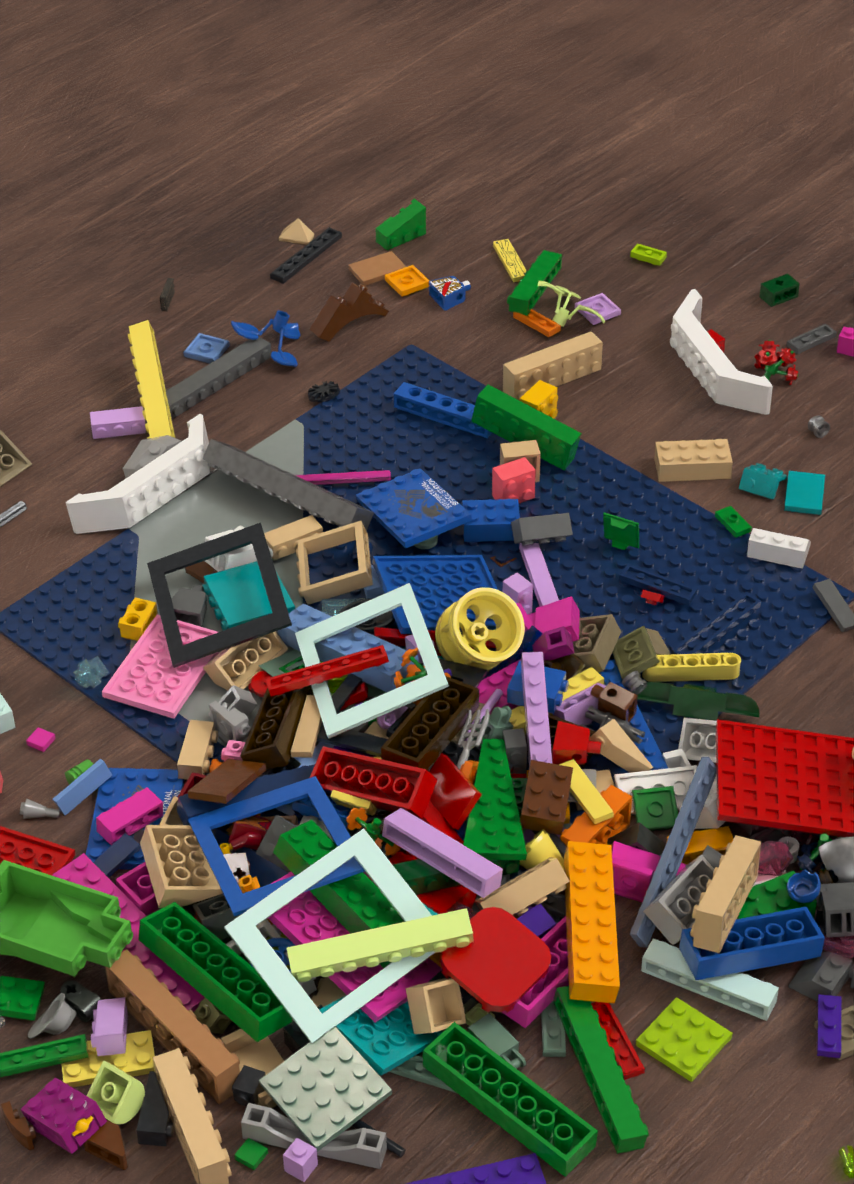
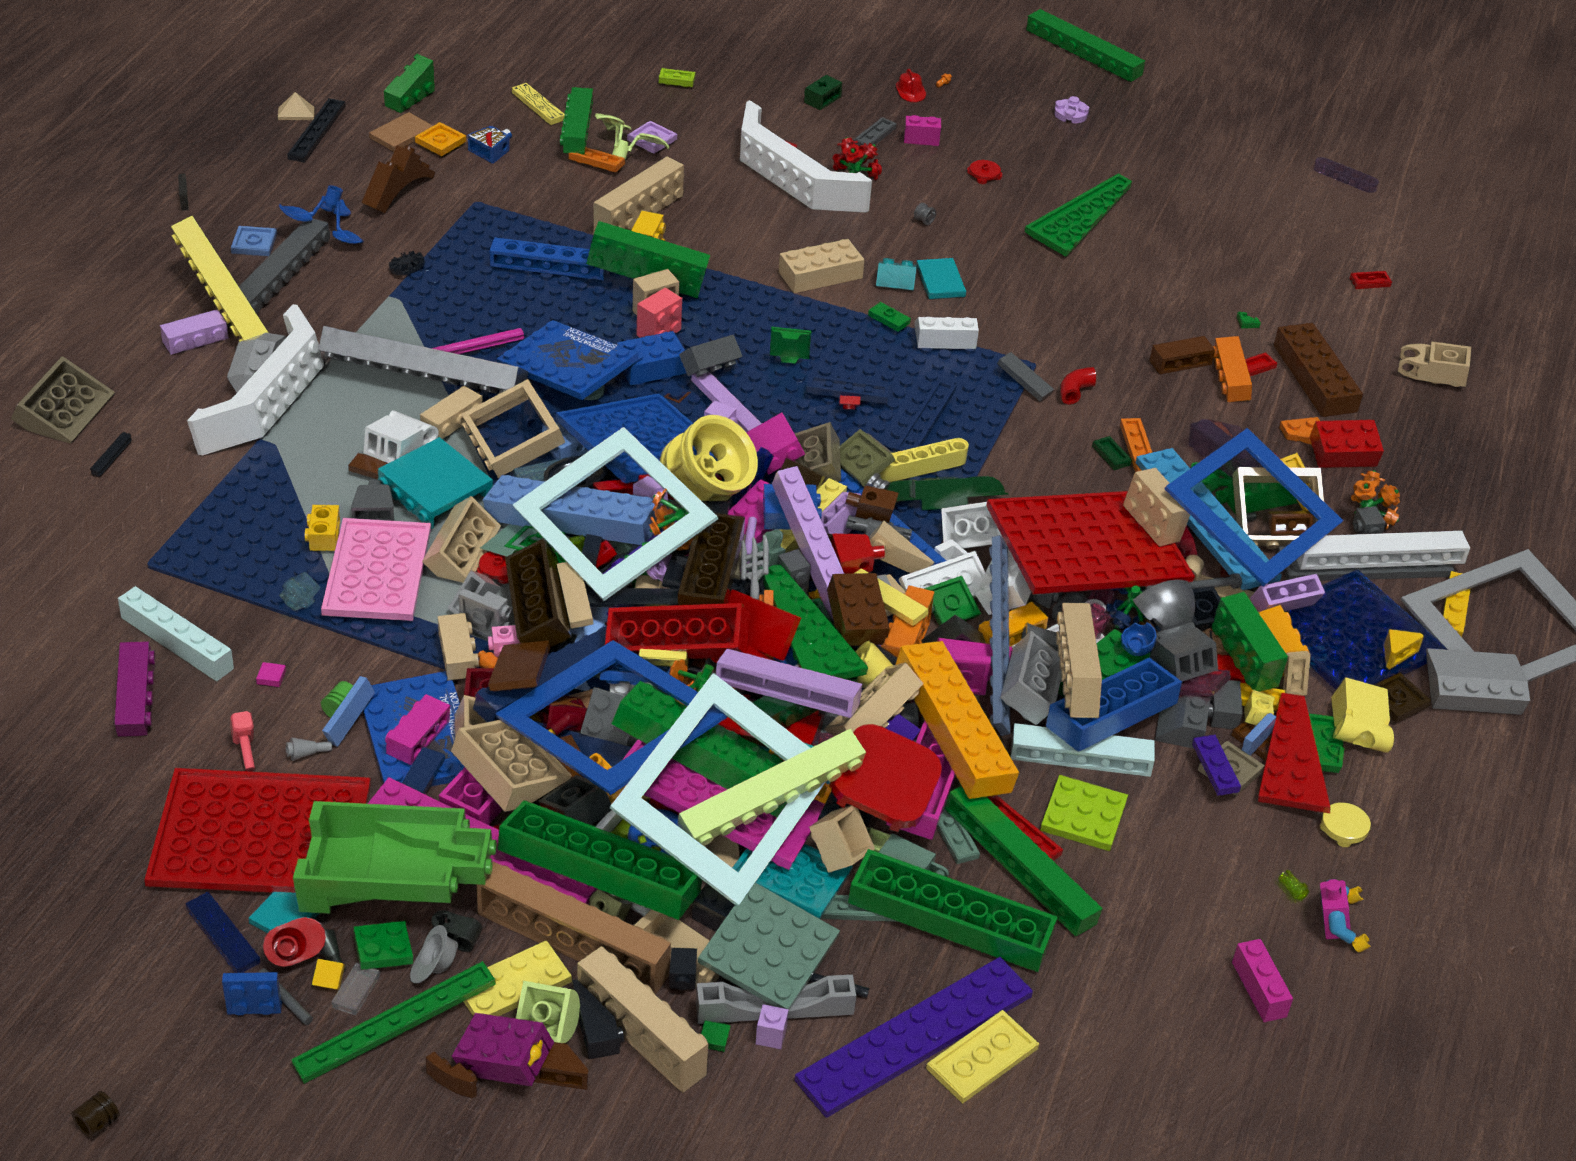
camera: 25 degrees left, 0 degrees up
(110, 1027) = (507, 946): lavender brick -> none
(278, 620) = (437, 527): black door -> none
(327, 670) = (573, 532): red plate -> none
(554, 644) = (788, 457): magenta slope -> none

